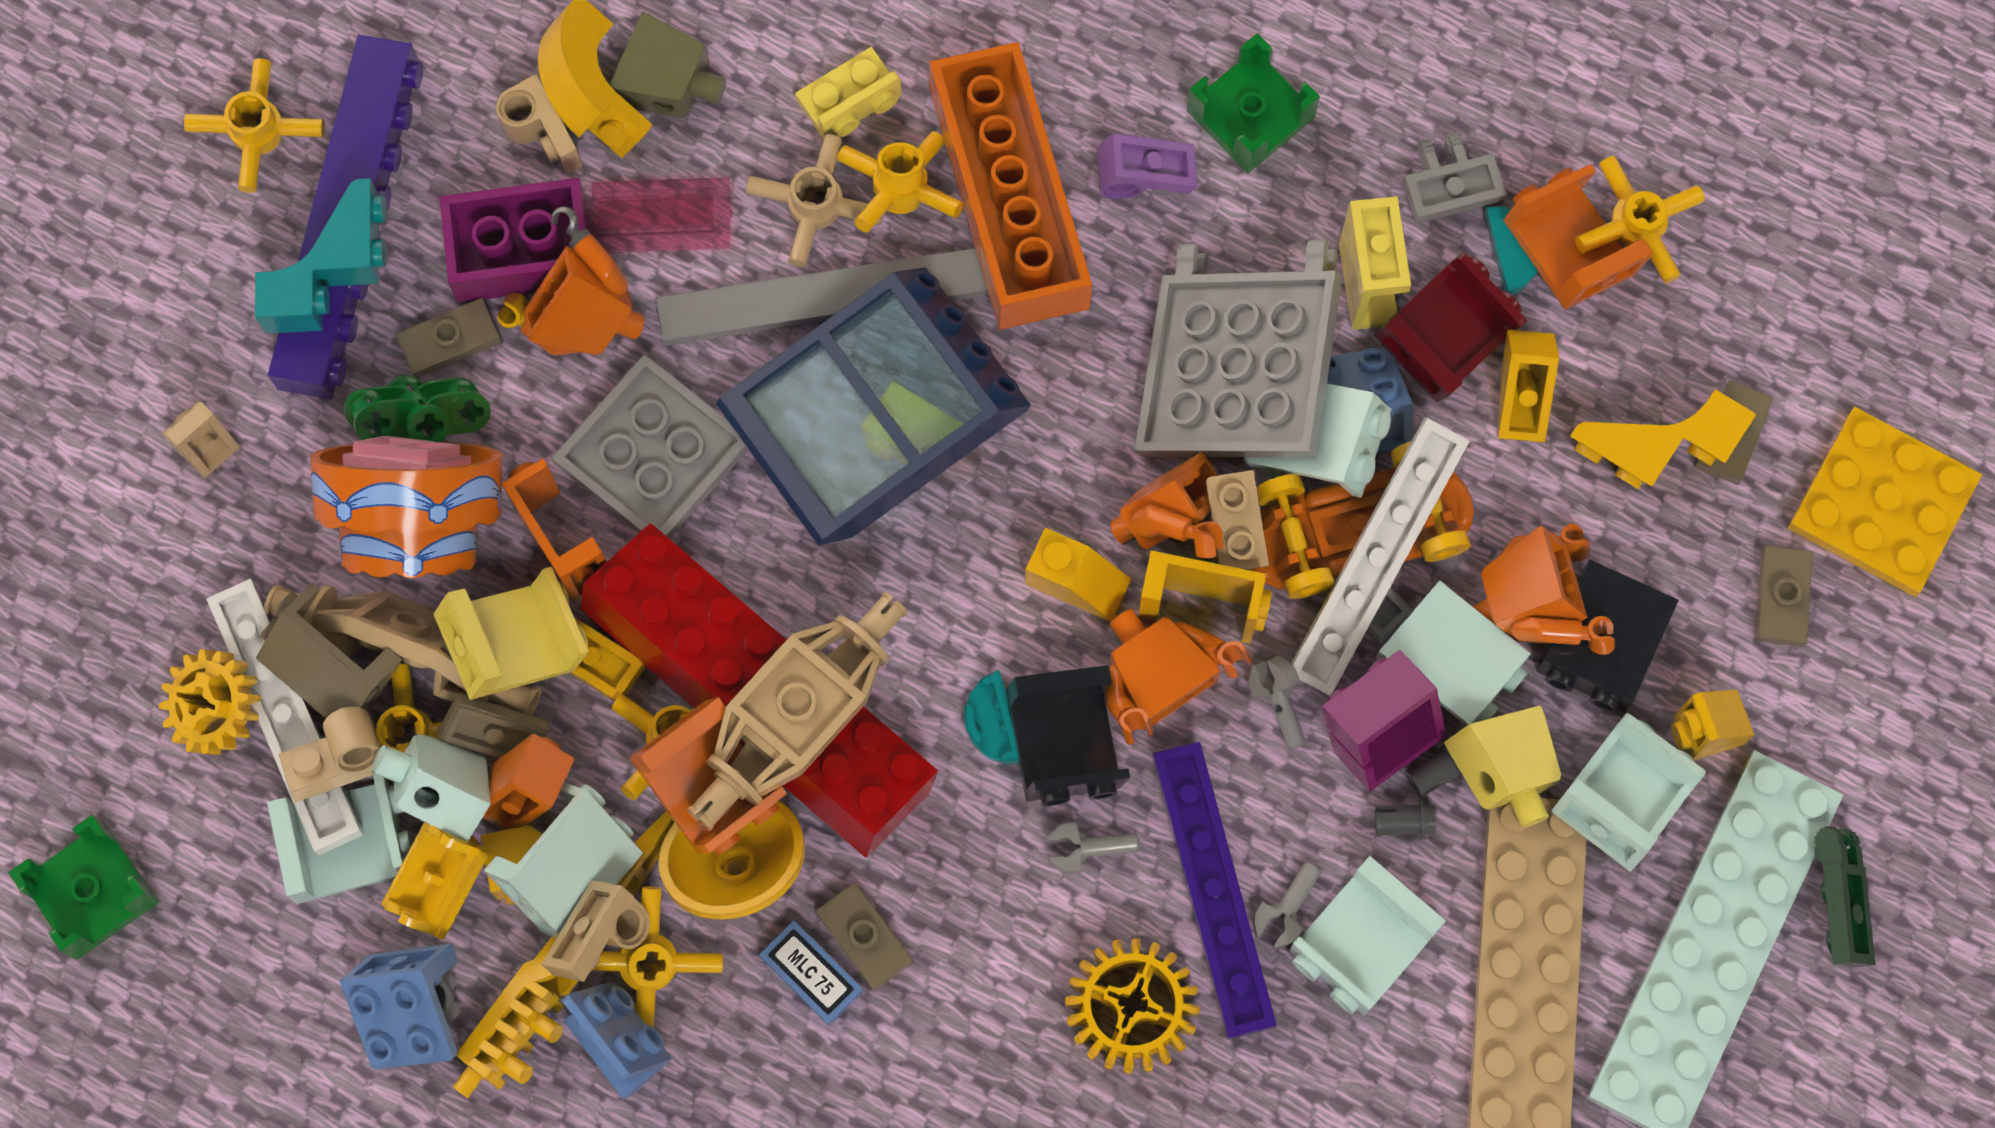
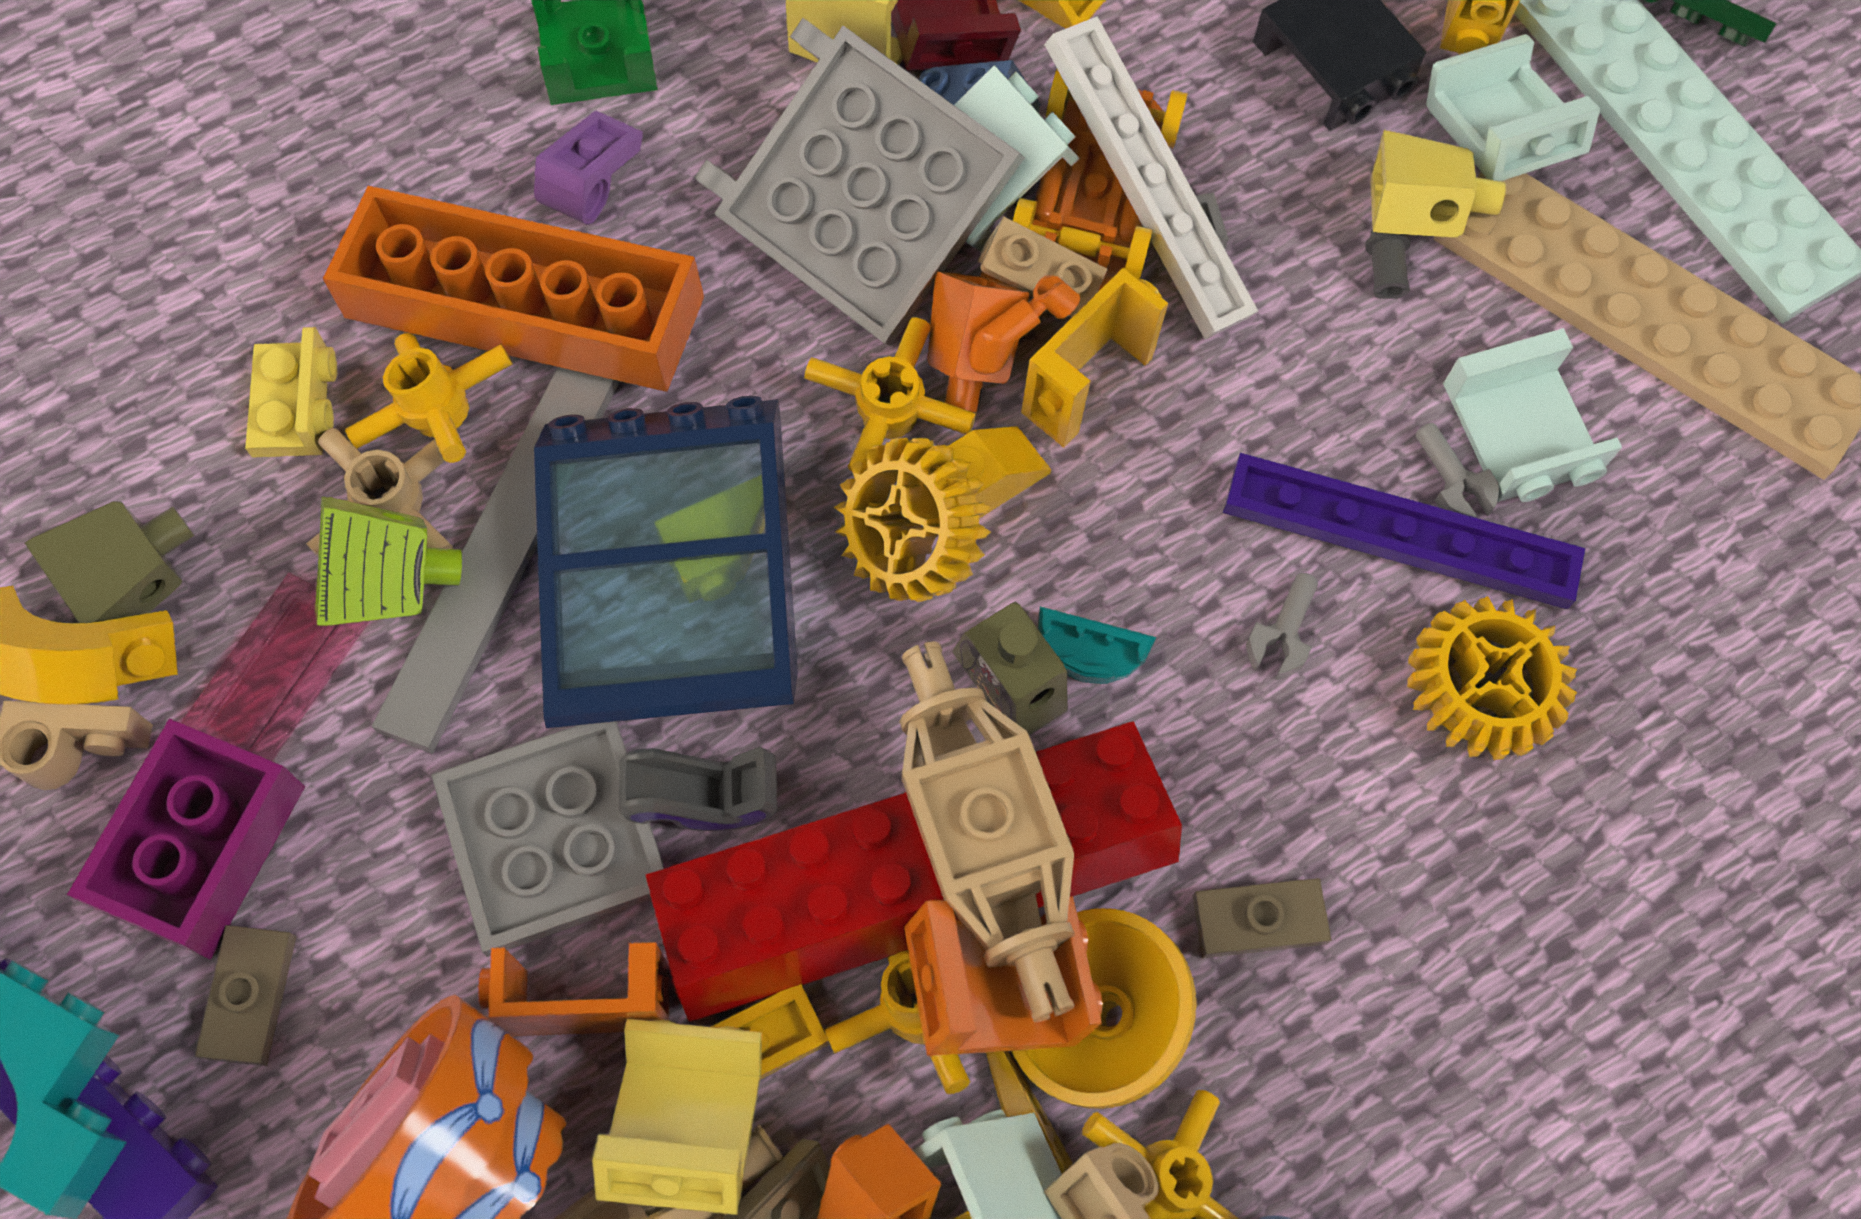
camera: 65 degrees left, 5 degrees down
(430, 406) = (313, 1081): green axle -> none
(579, 300) = (318, 807): orange torso -> none
(728, 520) = (697, 790): none -> dark grey animal
(756, 228) = (375, 564): none -> lime torso
(811, 973) = (1272, 1000): tile -> none
(933, 675) = (1013, 665): none -> olive torso
(996, 544) = (927, 493): none -> yellow gear
(1064, 735) = (1158, 583): black panel -> none
(1085, 461) = (905, 388): none -> yellow bar
(1163, 669) = (1142, 443): orange torso -> none
(1278, 694) = (1232, 356): light grey bar -> none
(1384, 719) = (1323, 264): magenta piece -> none
(1405, 820) = (1429, 307): dark grey pin -> none
(1459, 654) = (1283, 178): light aqua panel -> none
(1537, 594) = (1272, 69): orange torso -> none

